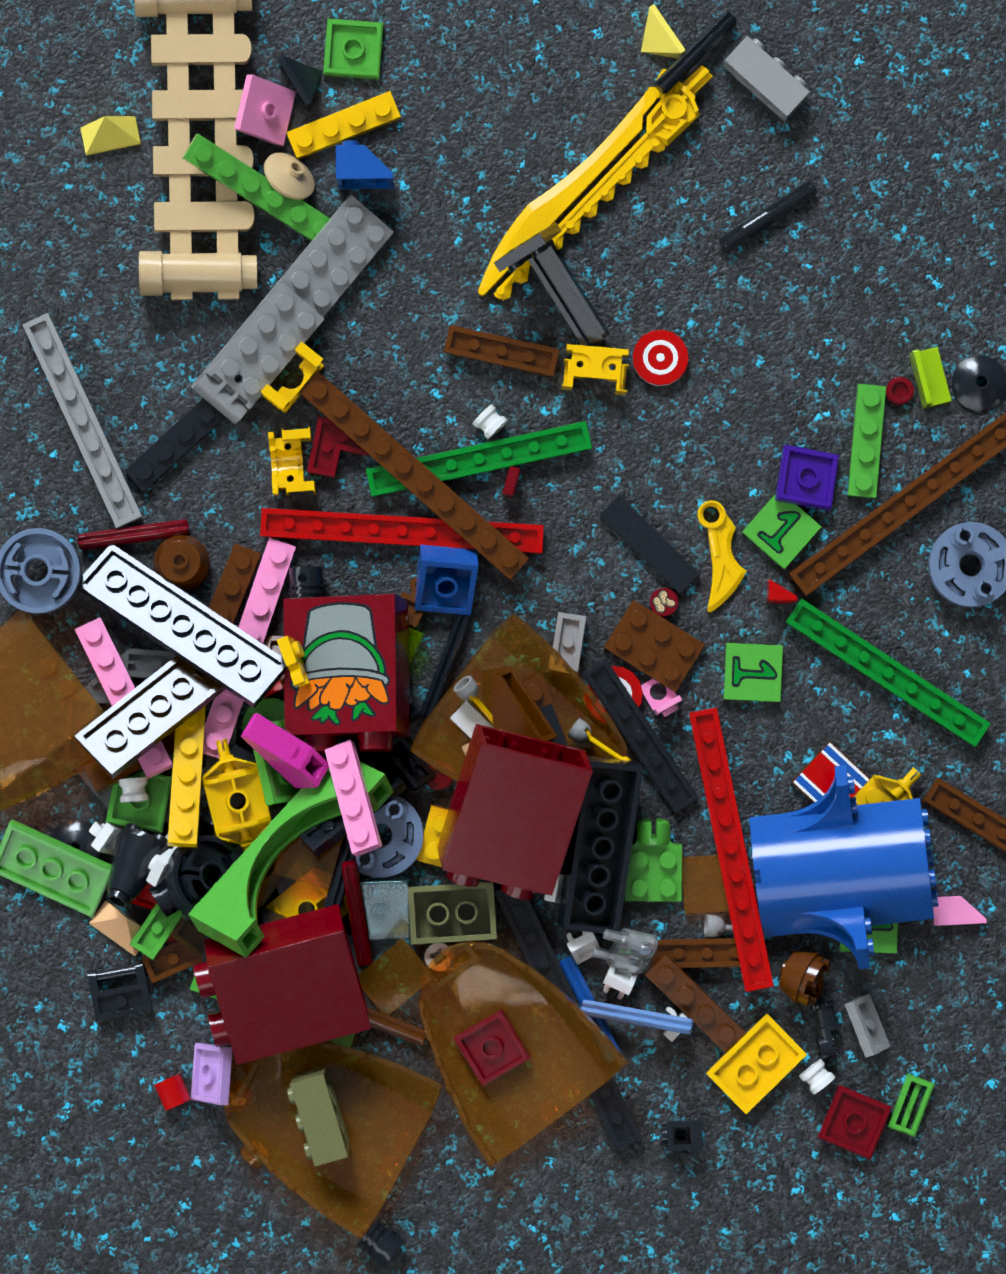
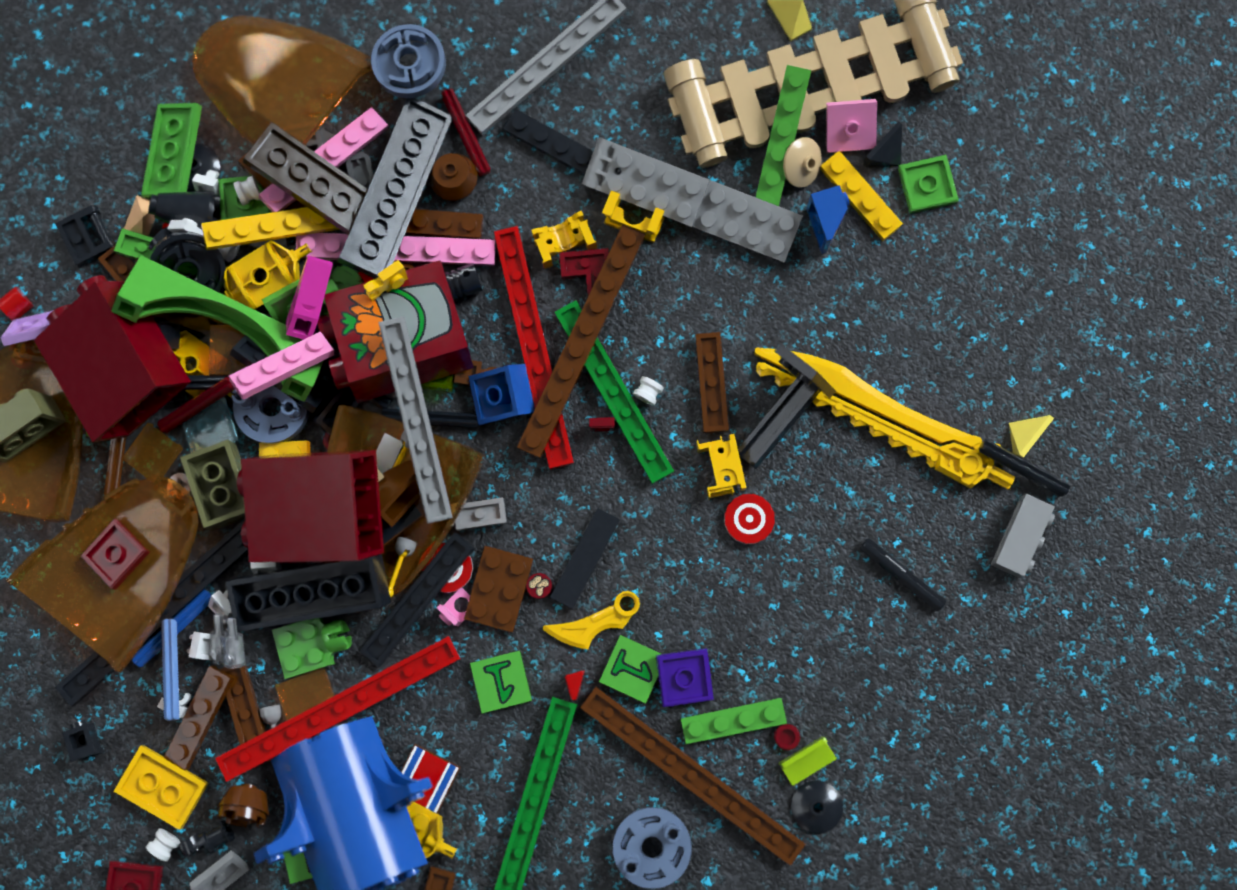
camera: 85 degrees right, 5 degrees down
(455, 672) = (415, 419): none -> light grey tile

